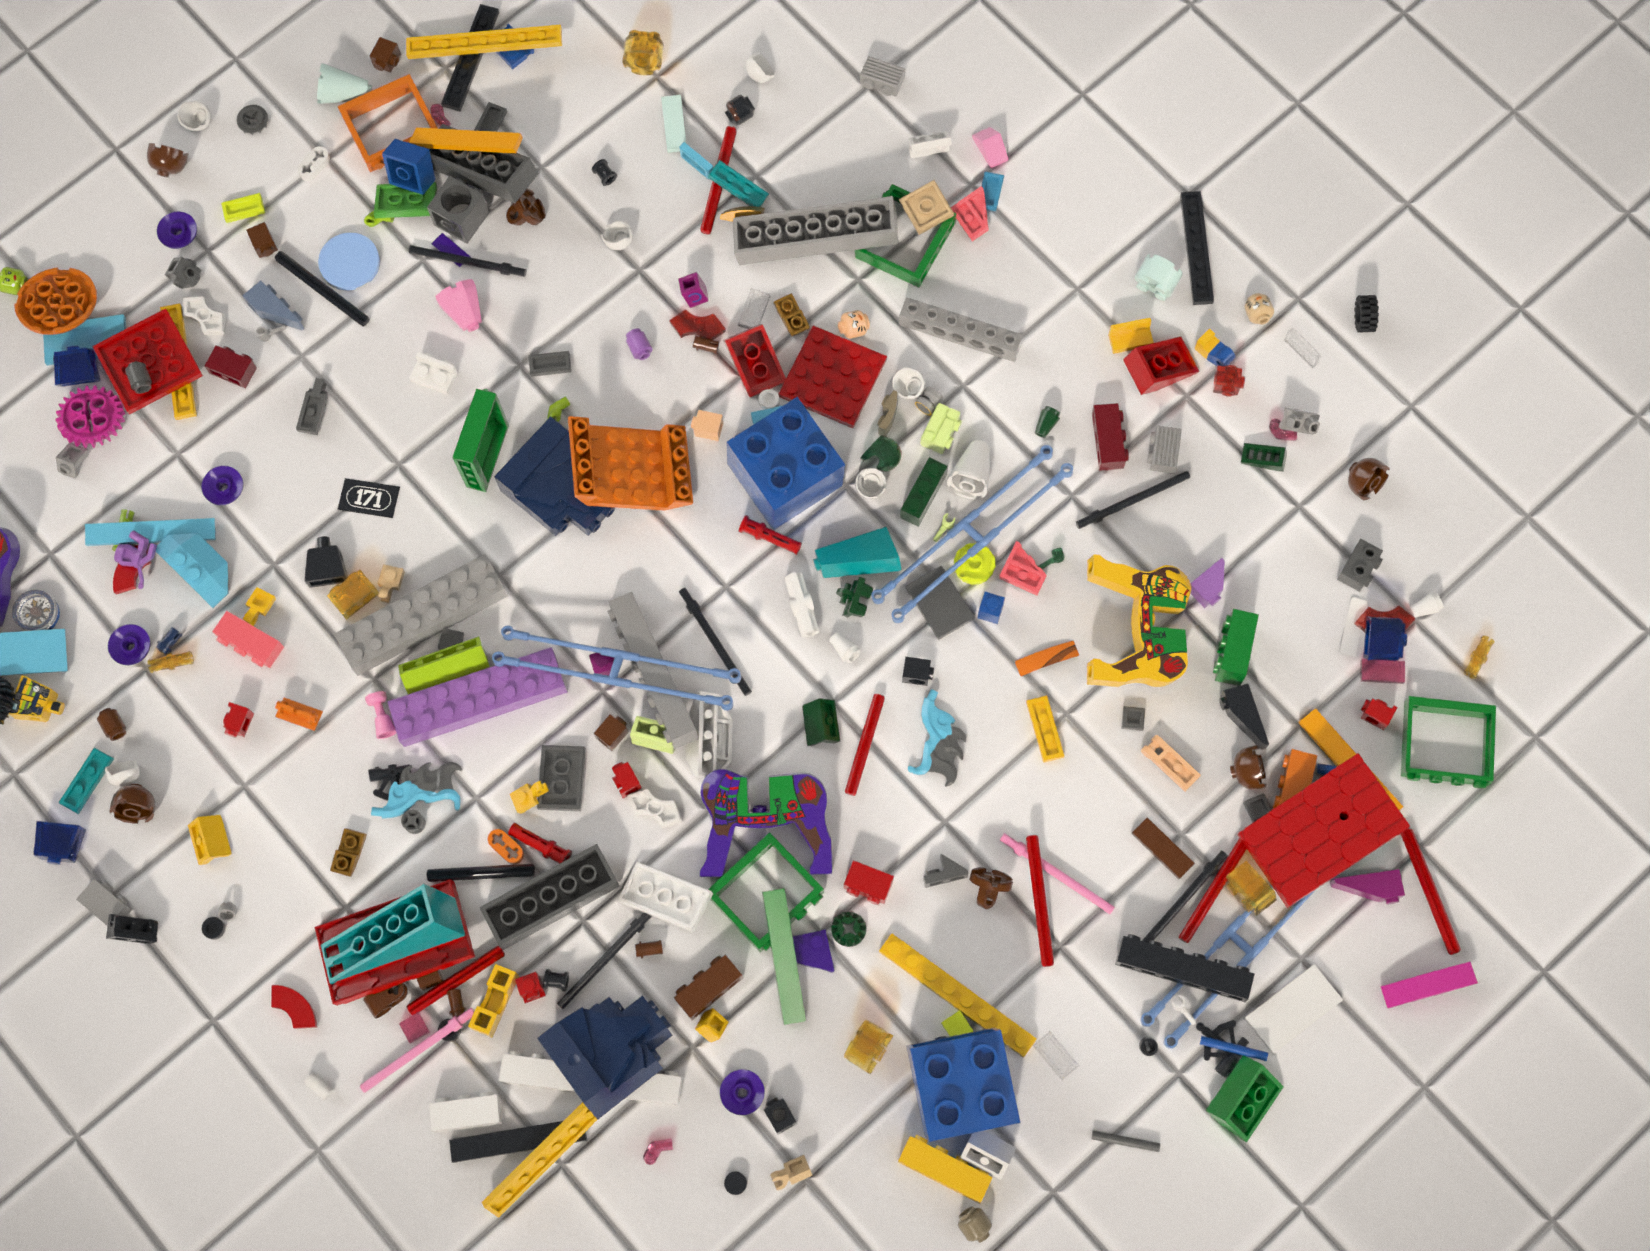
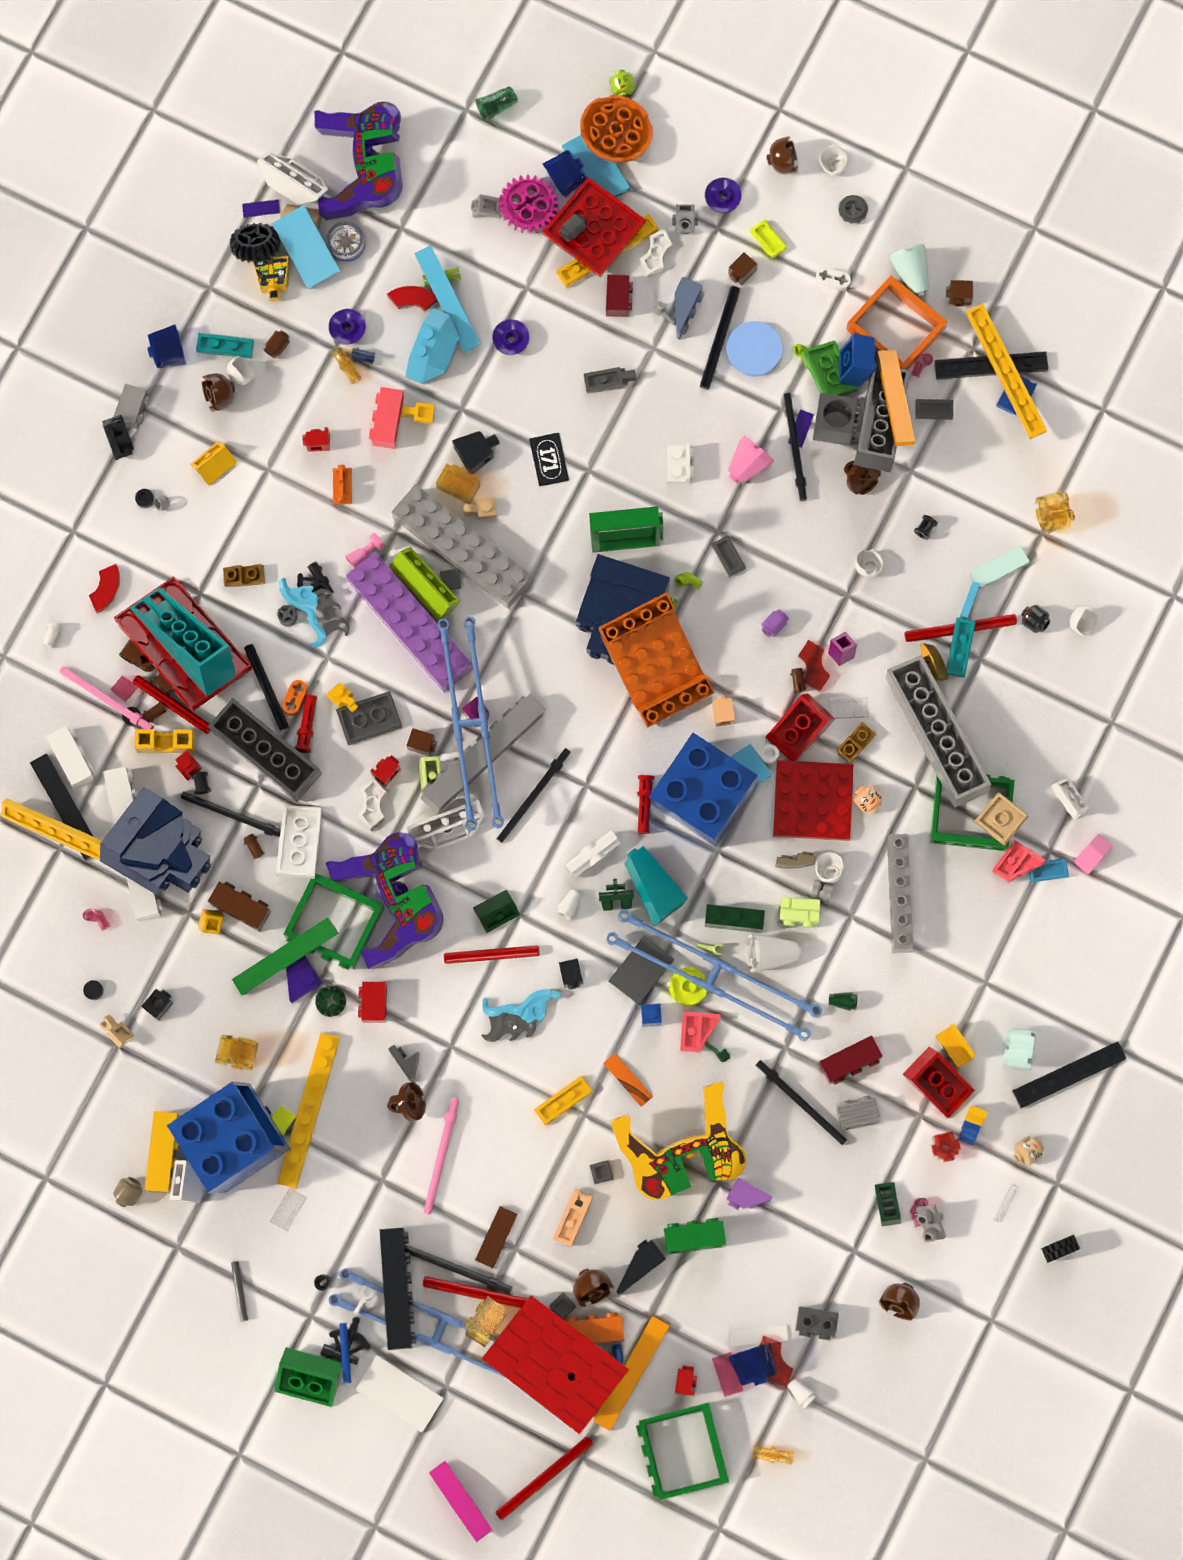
camera: 70 degrees right, 5 degrees up
(130, 556) = (420, 298): medium lavender piece -> none
(733, 1084) = (163, 957): dark purple dish -> none
(870, 483) = (723, 870): white hair -> none
(882, 76) = (1122, 731): light grey brick -> none
(886, 450) = (757, 871): clear green helmet -> none
(1040, 901) = (411, 1149): red axle -> none
(1374, 886) = (530, 1430): magenta slope -> none

